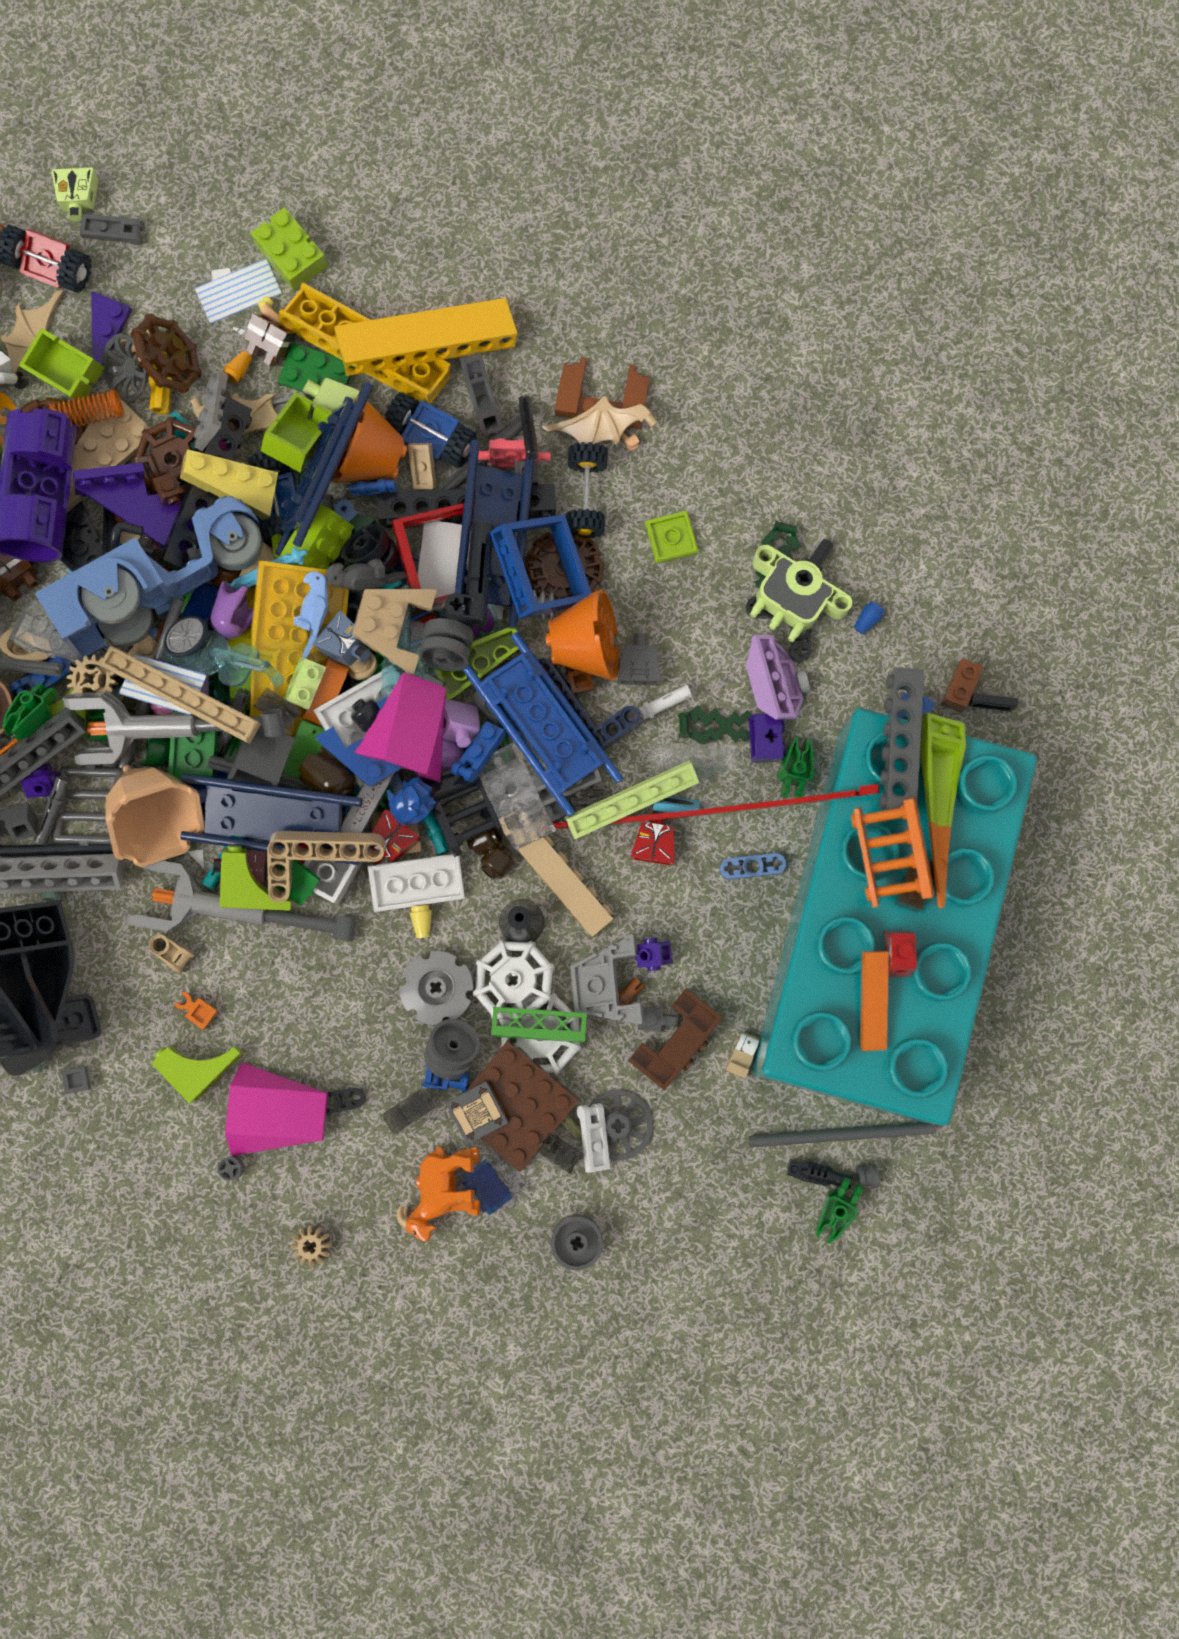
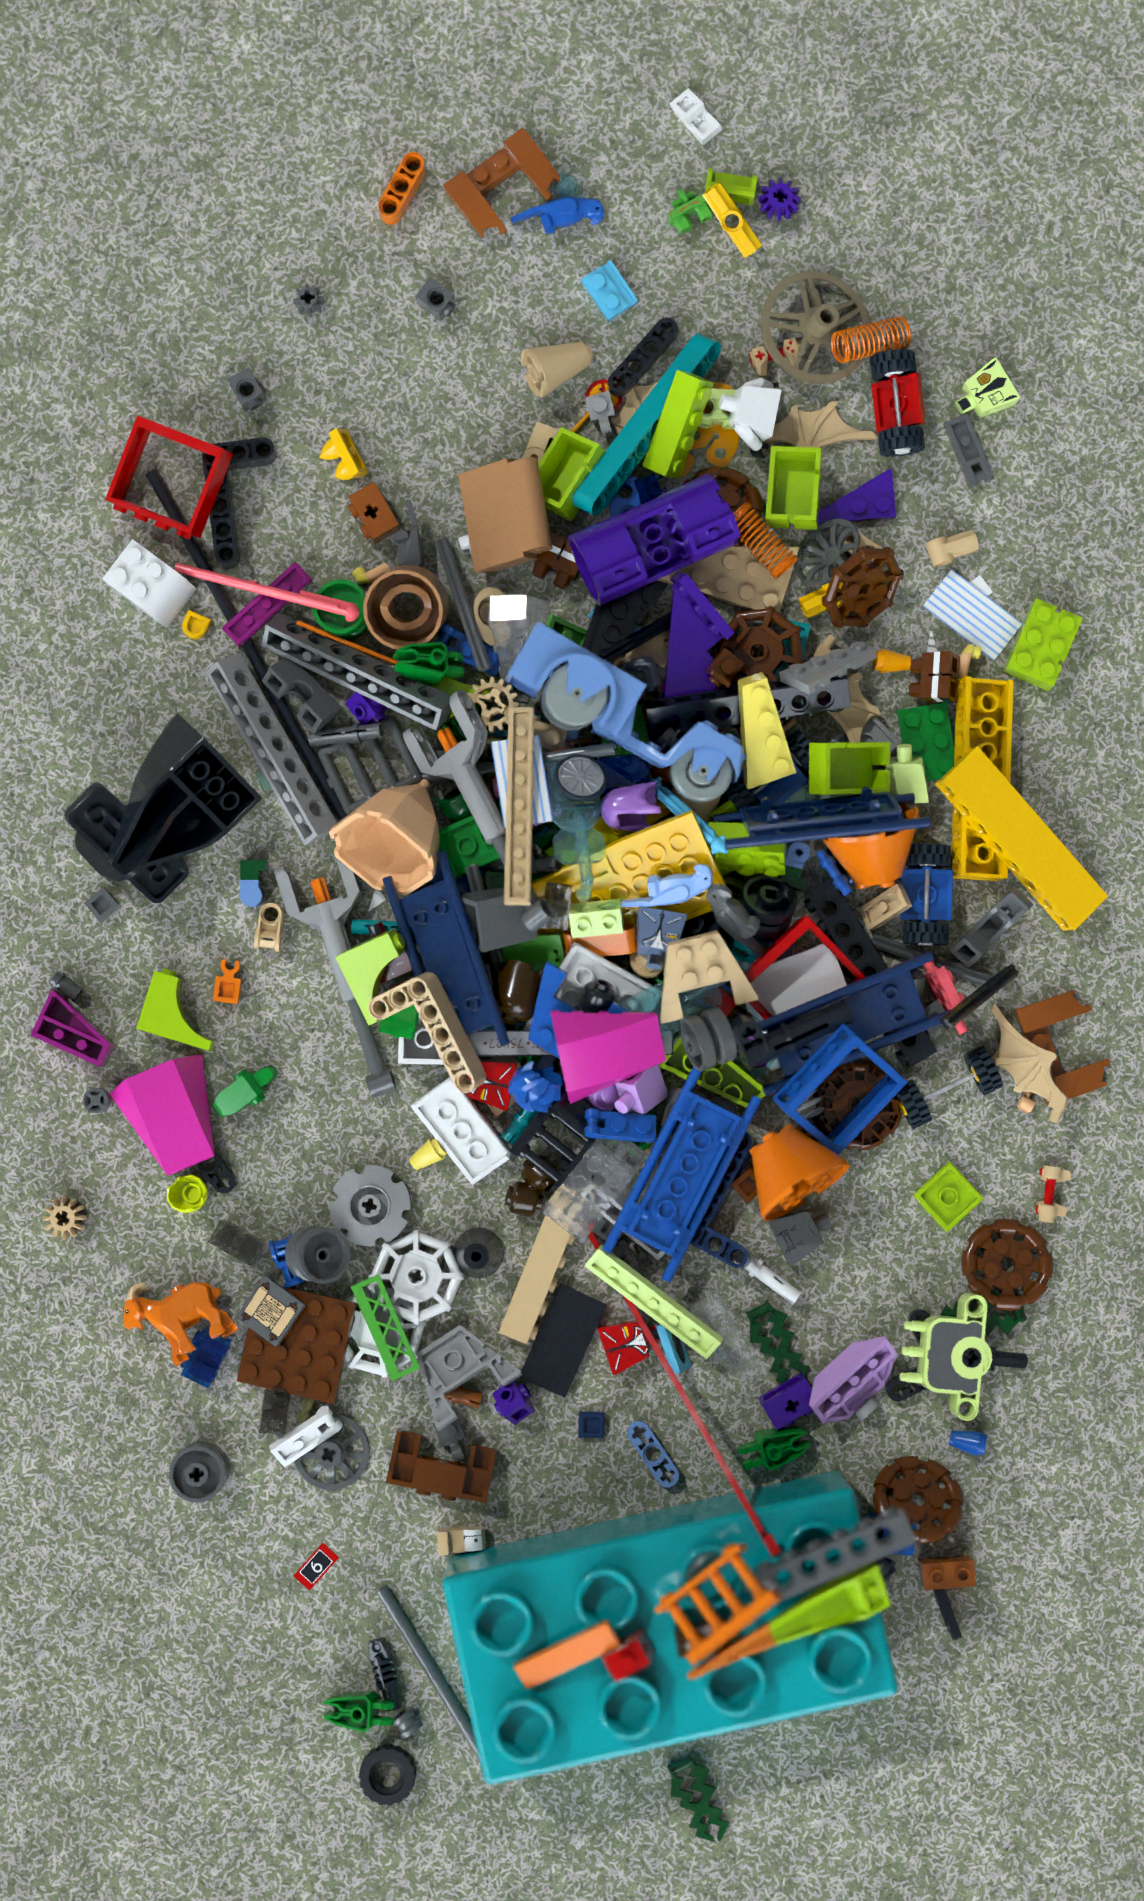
camera: 65 degrees right, 5 degrees up
(125, 1145) = (65, 986): none -> dark grey pin
(126, 949) = (250, 882): none -> leg
(161, 1160) = (71, 1031): none -> magenta wedge
(177, 283) = (945, 550): none -> tan piece
(289, 1041) = (246, 1089): none -> hinge
(347, 1132) = (187, 1193): none -> neon yellow hair
(626, 891) = (562, 1340): none -> black tile
(704, 903) = (591, 1424): none -> dark blue tile
(704, 1186) = (316, 1566): none -> sticker
(720, 467) = (1046, 1208): none -> tan piece
(742, 506) = (1018, 1253): none -> reddish brown plate
(877, 678) = (925, 1487): none -> reddish brown plate
(919, 1209) = (382, 1794): none -> black tyre
(1052, 973) = (702, 1806): none -> dark green piece

